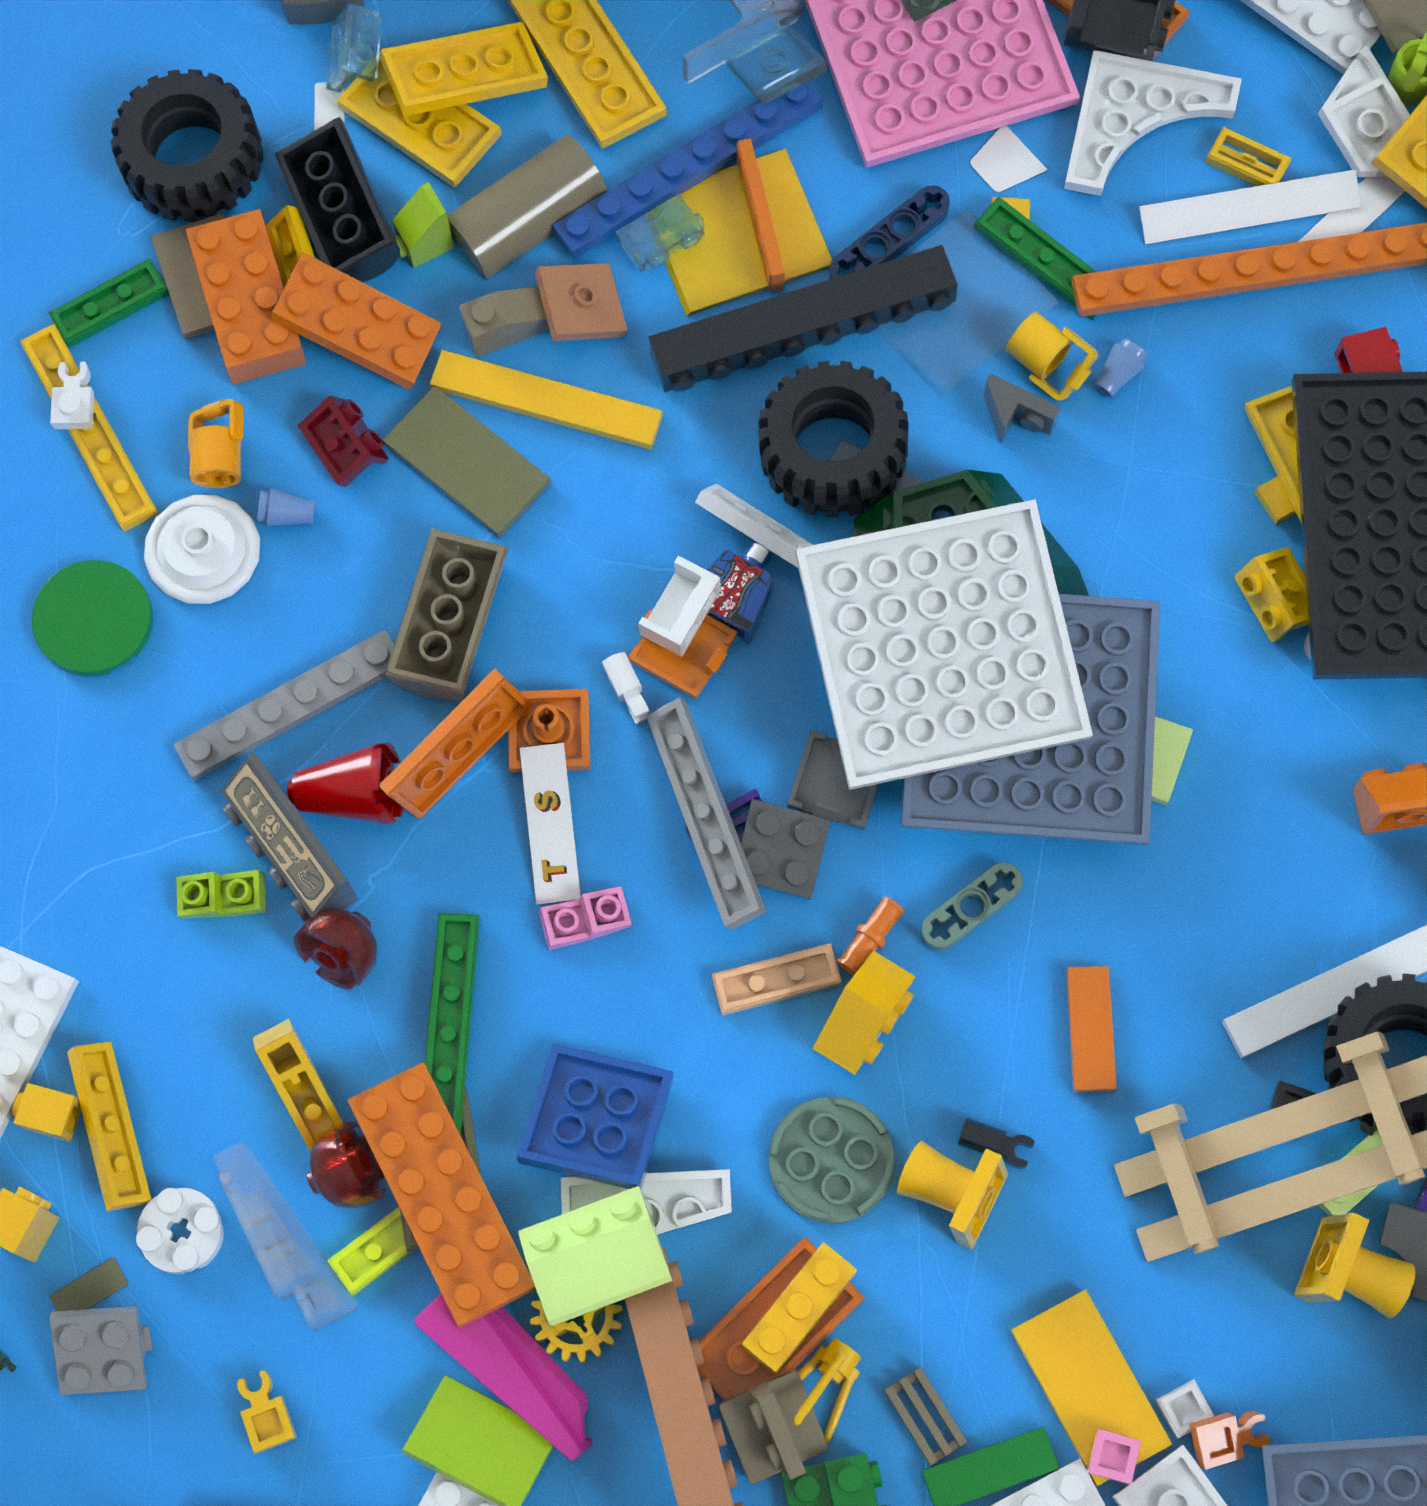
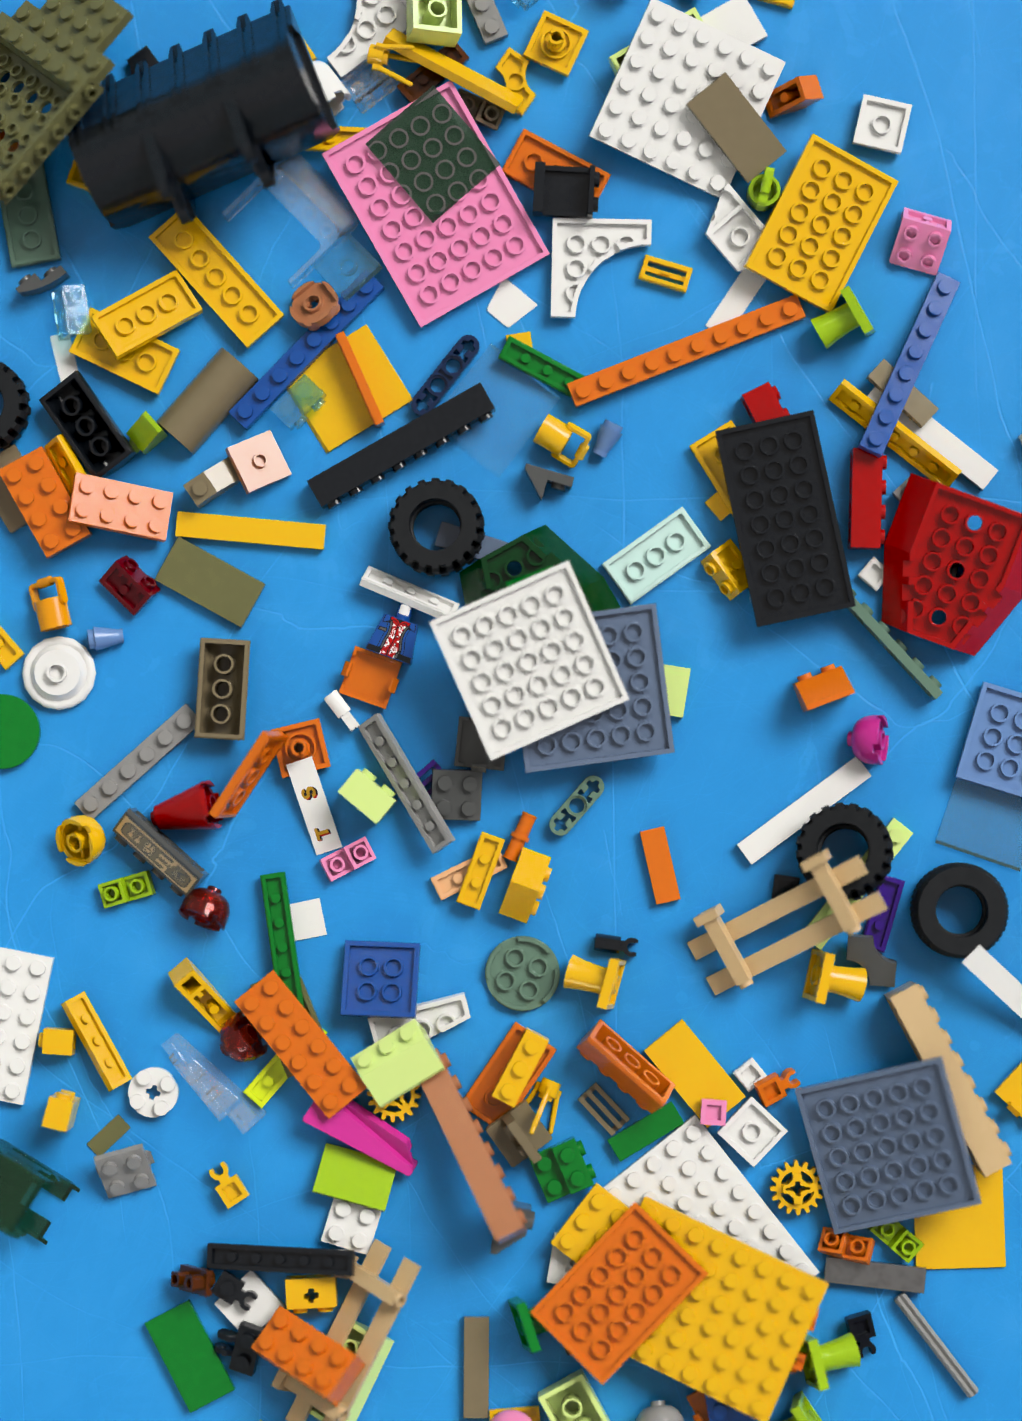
camera: 10 degrees left, 15 degrees up
(167, 796) = (80, 839): none -> yellow cylinder
(499, 1002) = (308, 919): none -> white sticker
(640, 817) = (368, 795): none -> yellowish green piece
(681, 607) = (365, 660): white panel -> none
(715, 102) = (321, 314): none -> nougat plate
(796, 976) = (480, 870): none -> yellow tile
(976, 1348) = (626, 1067): none -> orange slope
(1168, 550) = (656, 555): none -> light aqua tile
(1250, 206) = (671, 307): white sticker -> none

